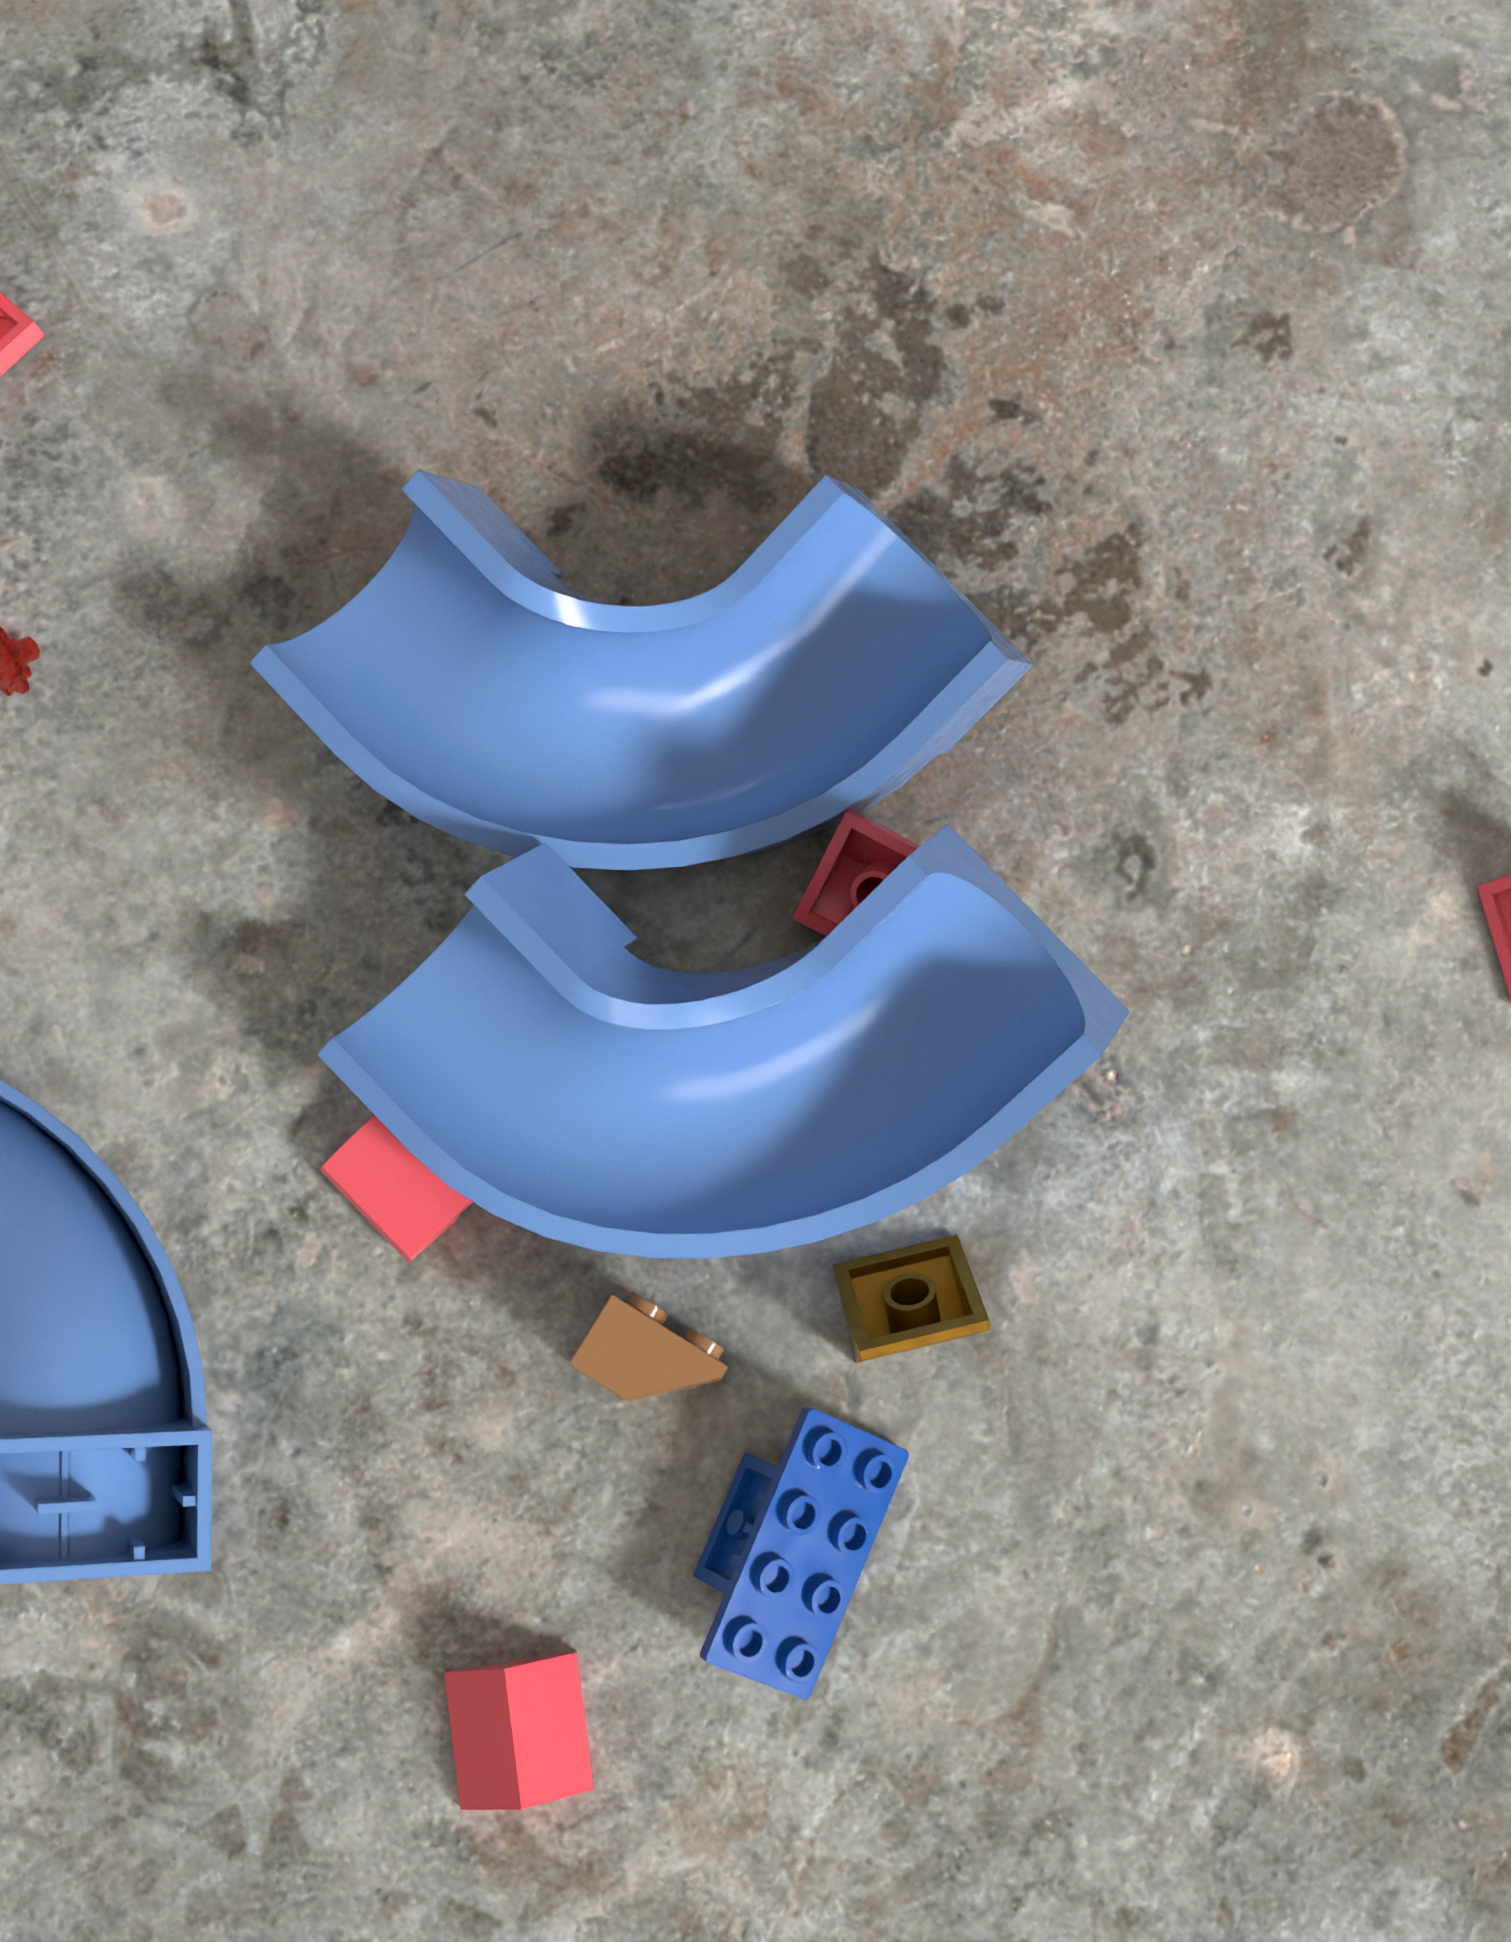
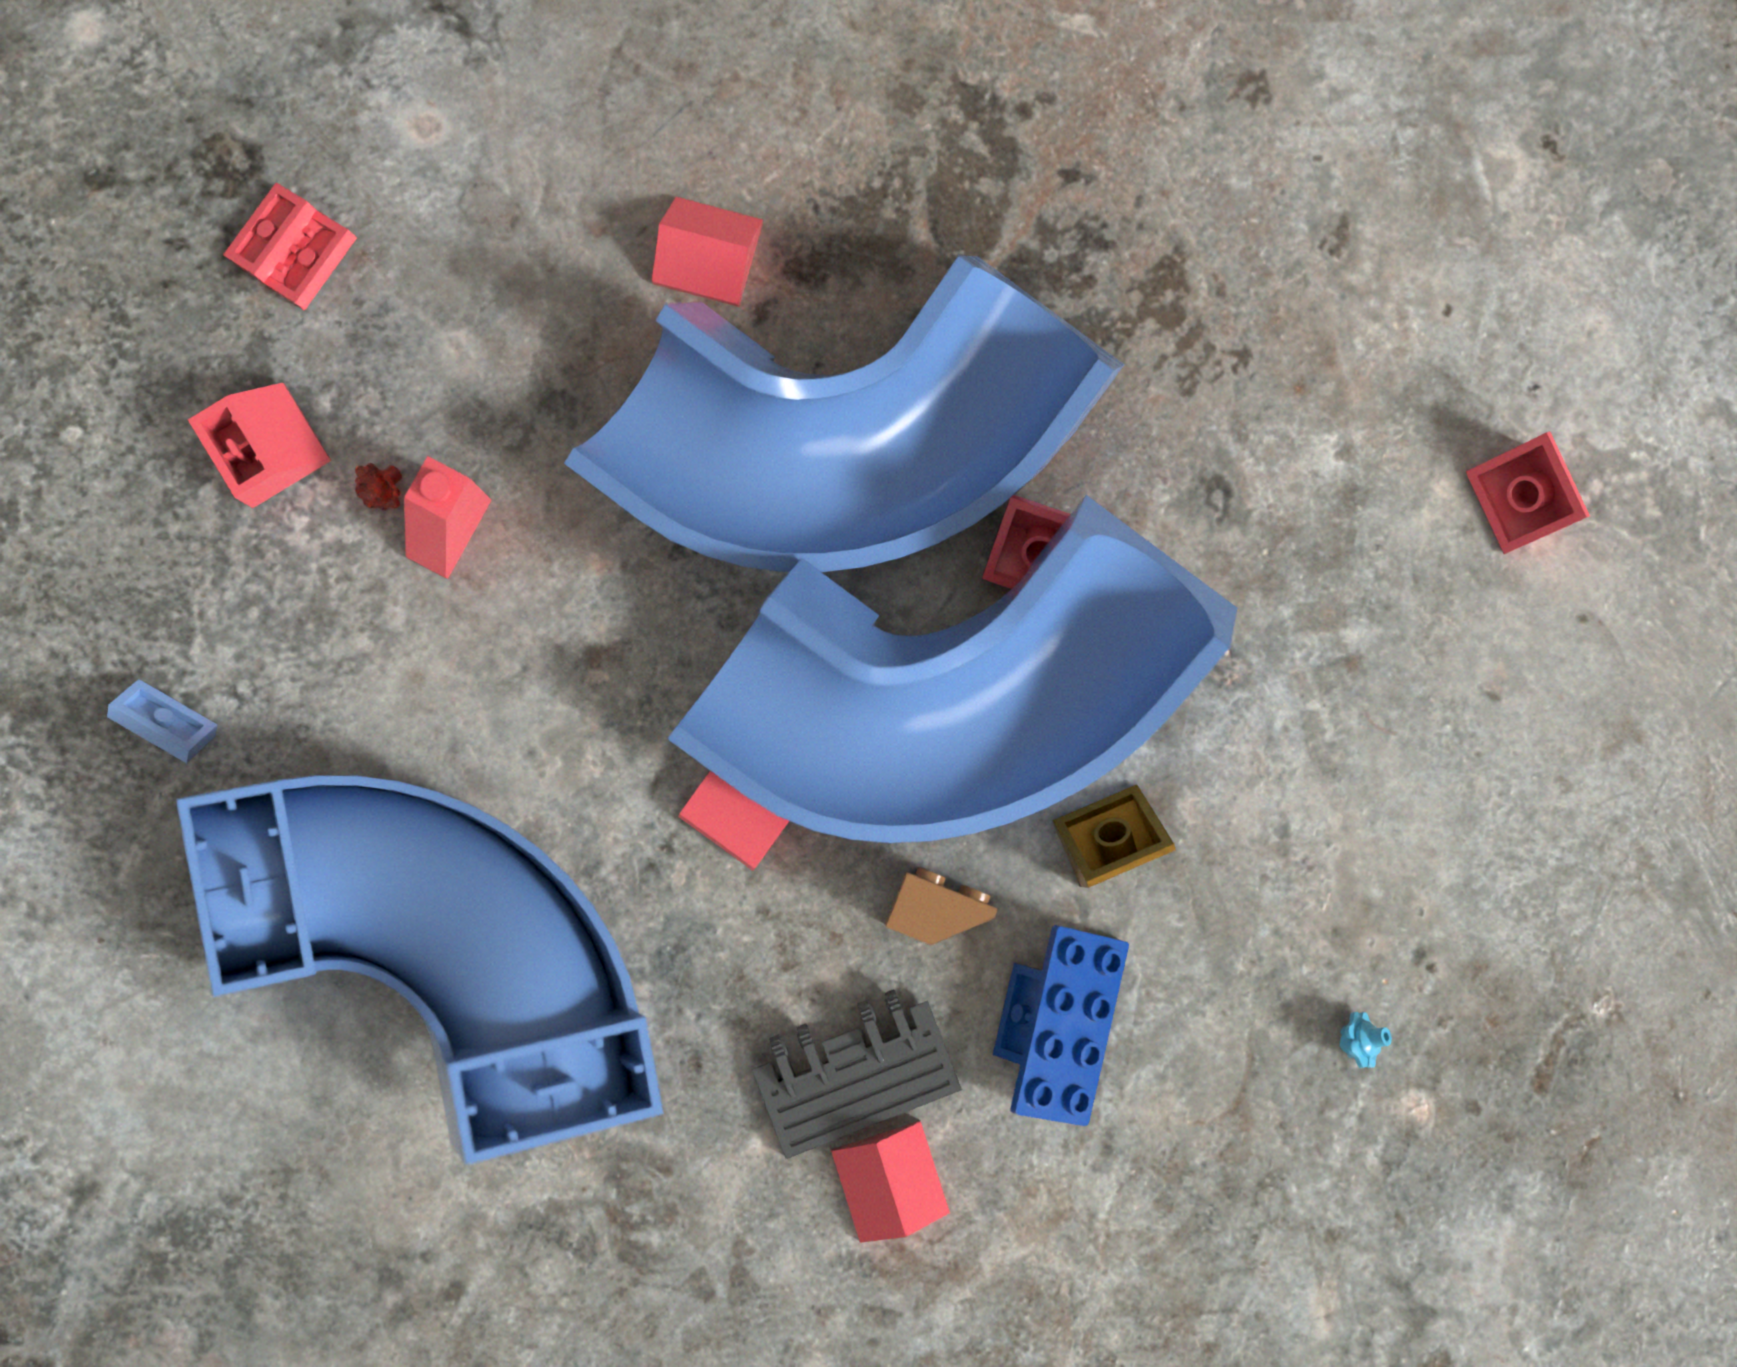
camera: 10 degrees left, 5 degrees up
(78, 710) = (441, 516): none -> coral slope
(500, 426) = (705, 250): none -> coral slope
(500, 1582) = (858, 1081): none -> dark grey hinge
(1213, 1644) = (1363, 1039): none -> medium azure plant

